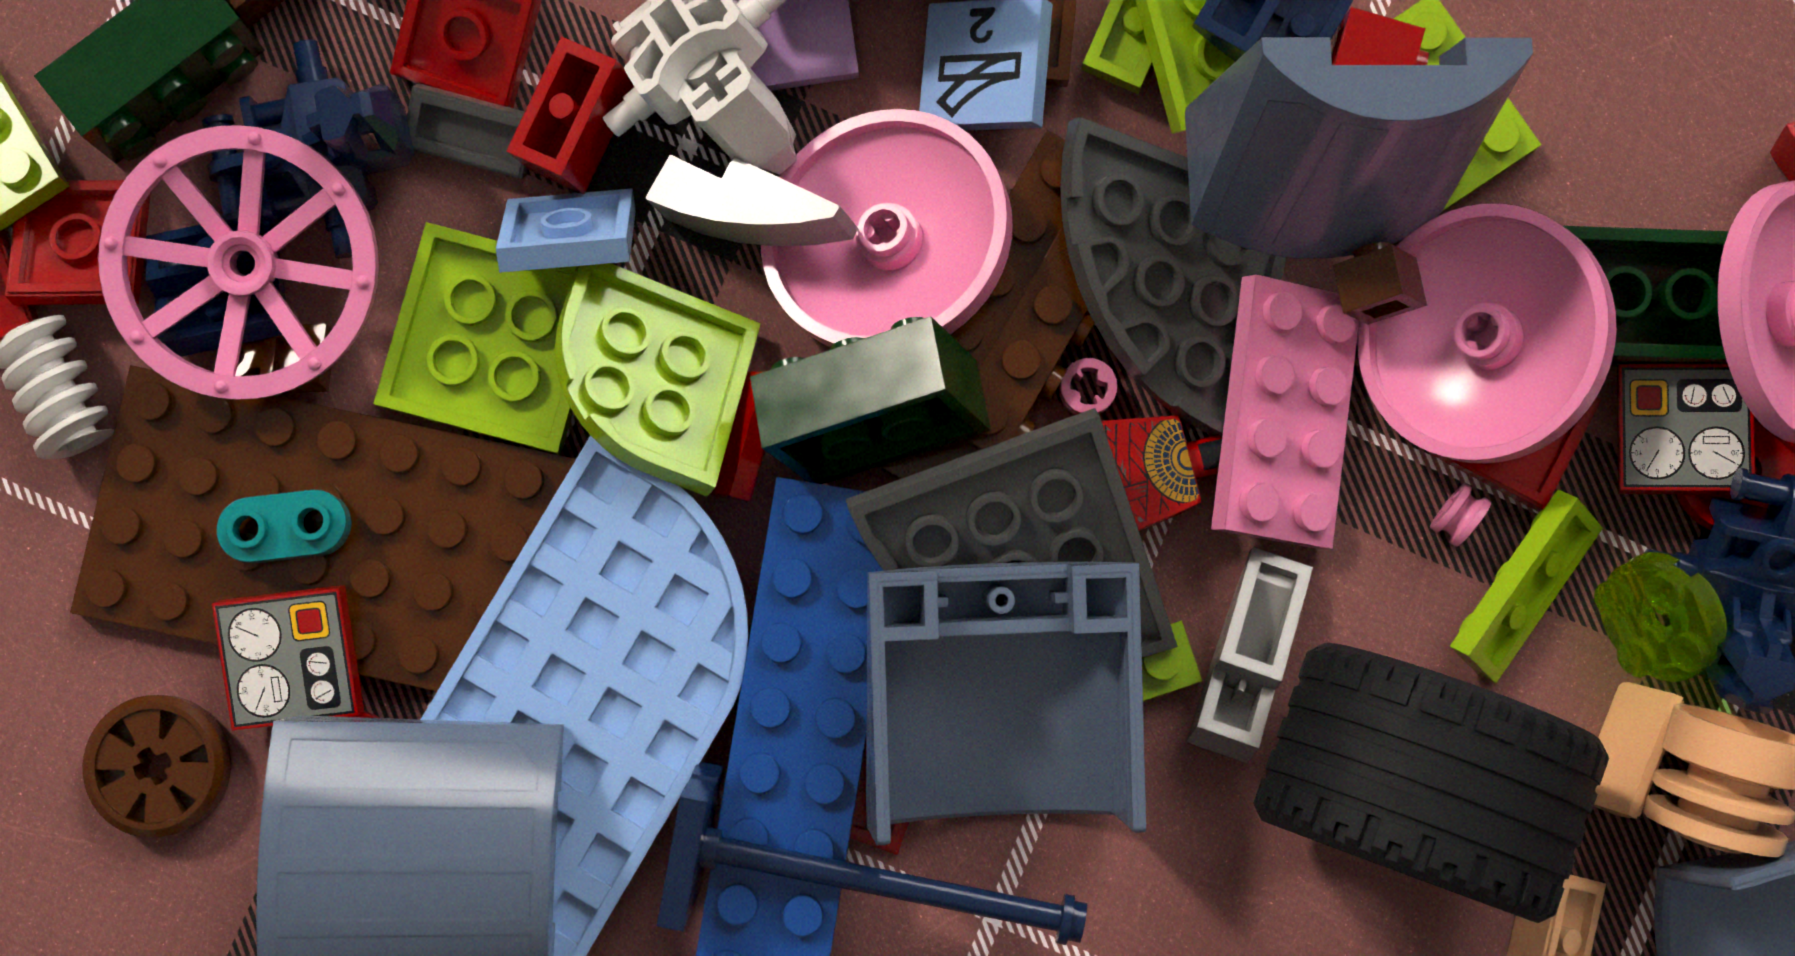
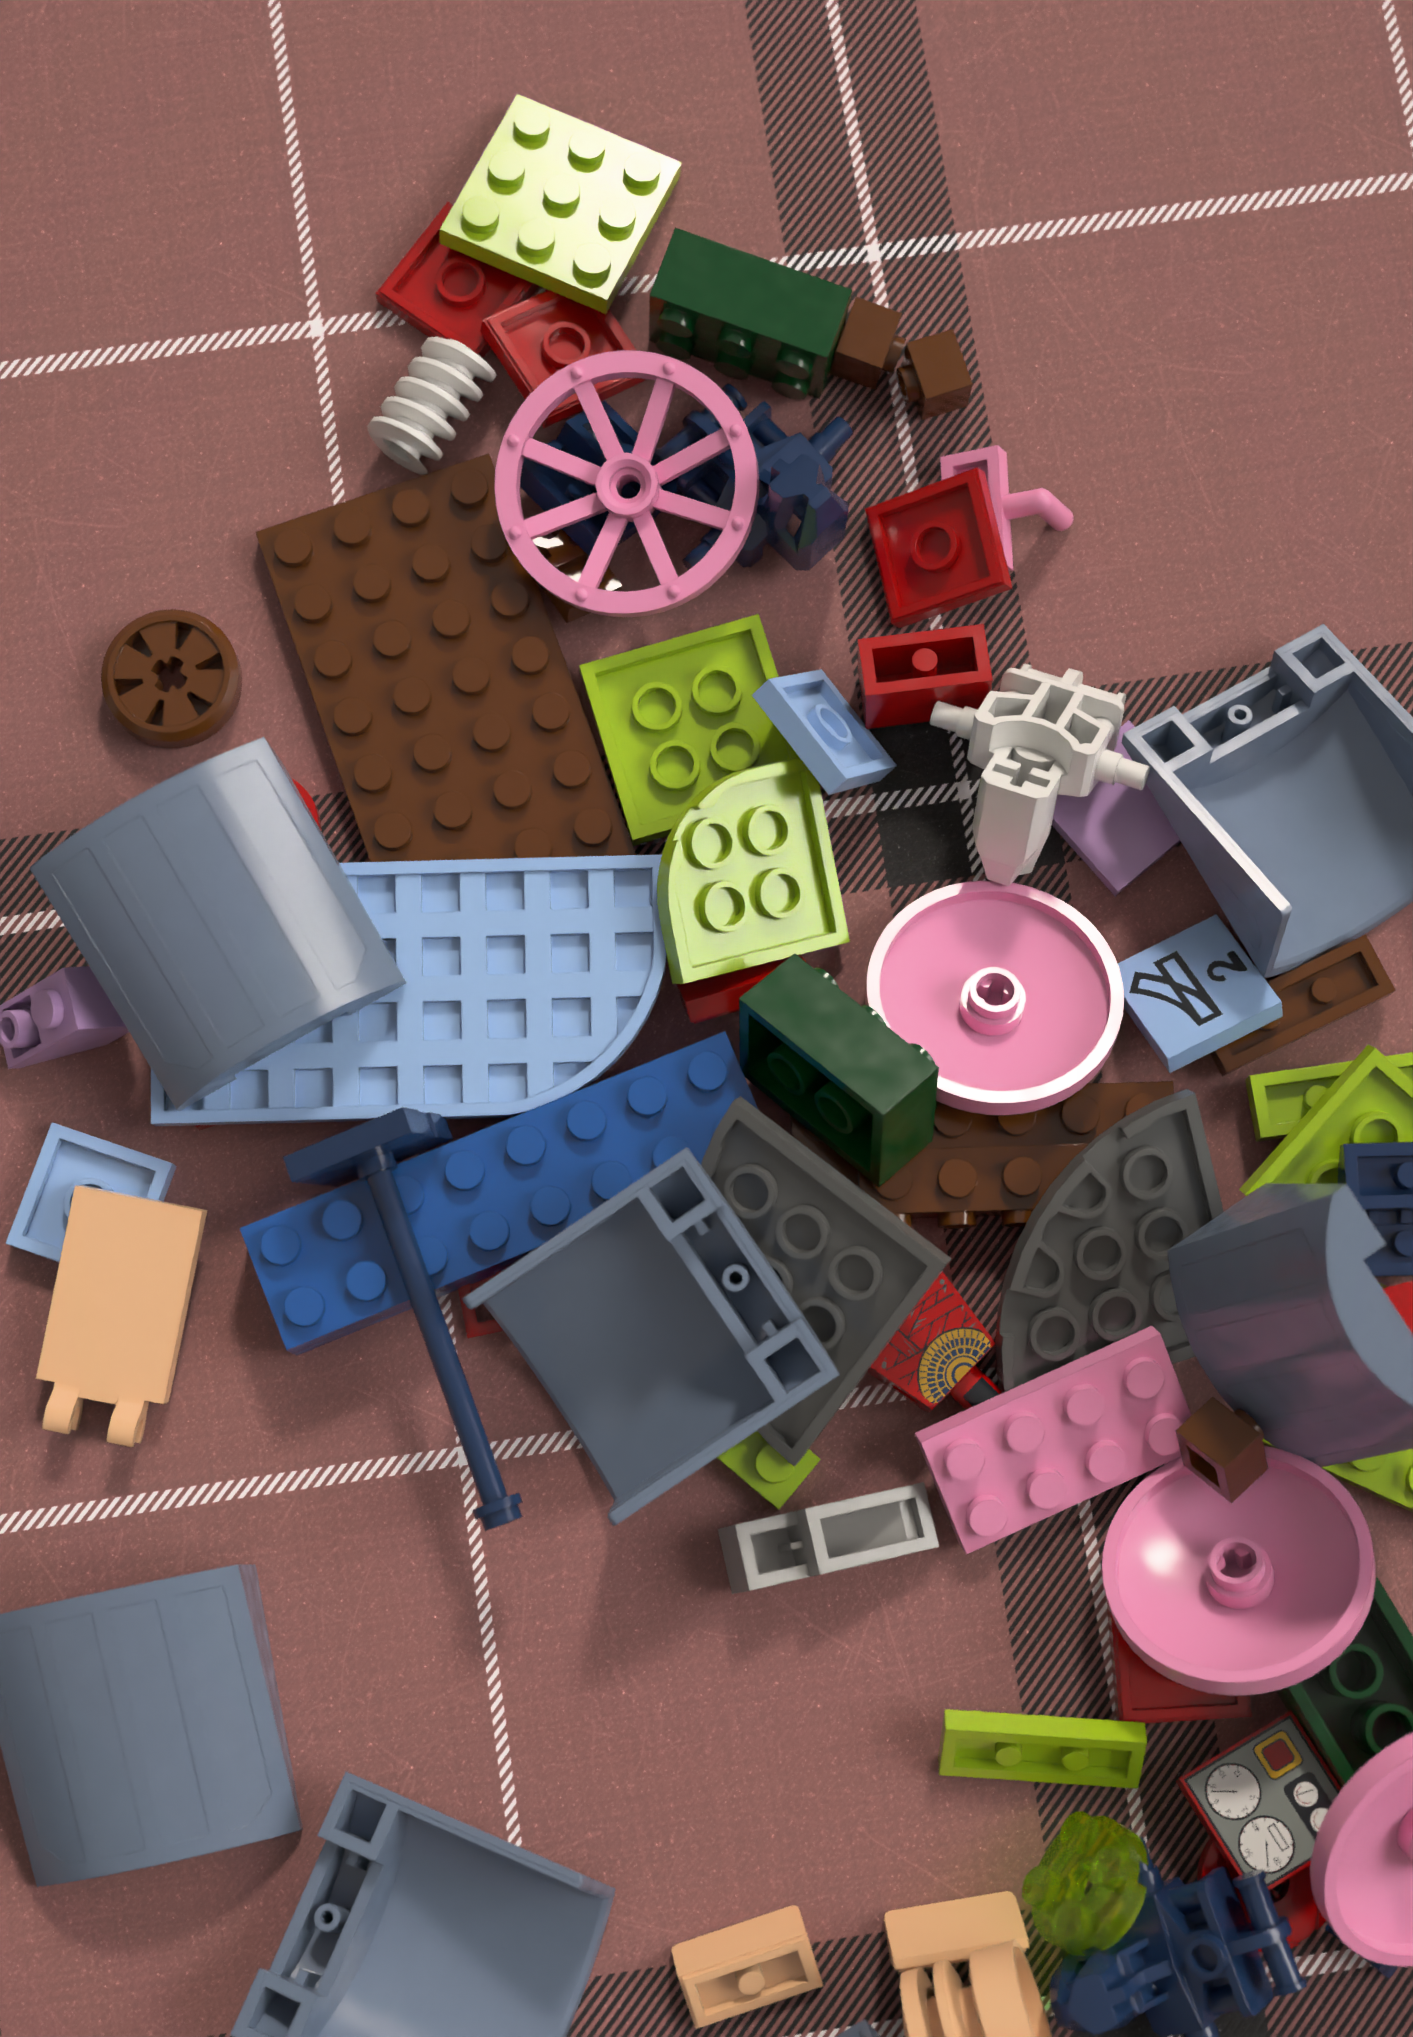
camera: 55 degrees right, 5 degrees down
(282, 528) = (430, 653): teal plate -> none
(287, 656) = (326, 725): tile -> none
(464, 129) = (856, 596): dark grey tile -> none
(747, 206) = (940, 866): slope -> none
(1104, 377) = (989, 1263): bright pink bush -> none
(1433, 778) = (811, 1750): black tyre -> none
(1460, 515) = (1067, 1650): bright pink bush -> none

